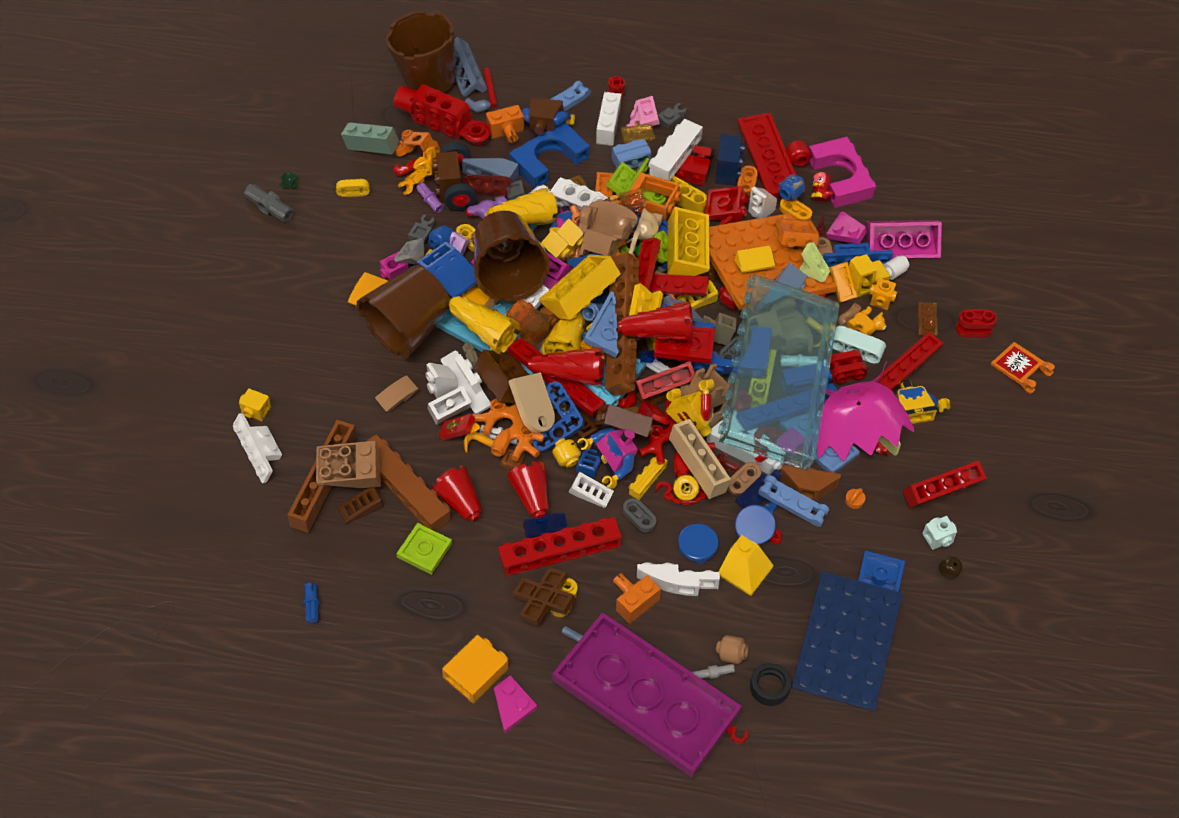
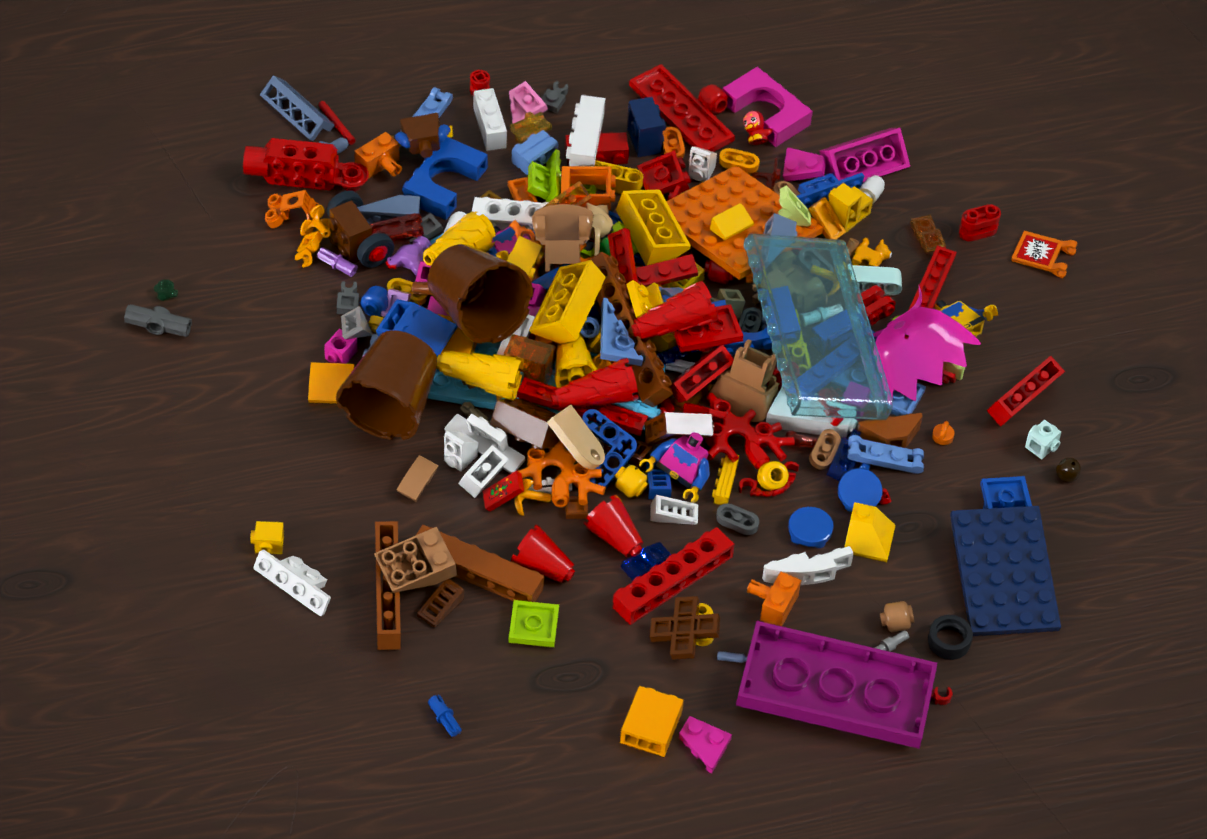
camera: 25 degrees left, 5 degrees down
(352, 187) = (244, 276): yellow beam -> none
(370, 138) = (237, 215): sand green brick -> none
(400, 171) = (294, 237): red arm -> none
(424, 49) = (255, 98): reddish brown cone -> none
(692, 406) = (747, 394): torso -> none
(699, 458) = (777, 440): tan brick -> none
(703, 152) = (613, 125): red plate -> none
(791, 187) = (727, 137): blue head -> none
(796, 232) = (758, 182): orange plate -> none
(883, 293) = (872, 220): light orange brick -> none

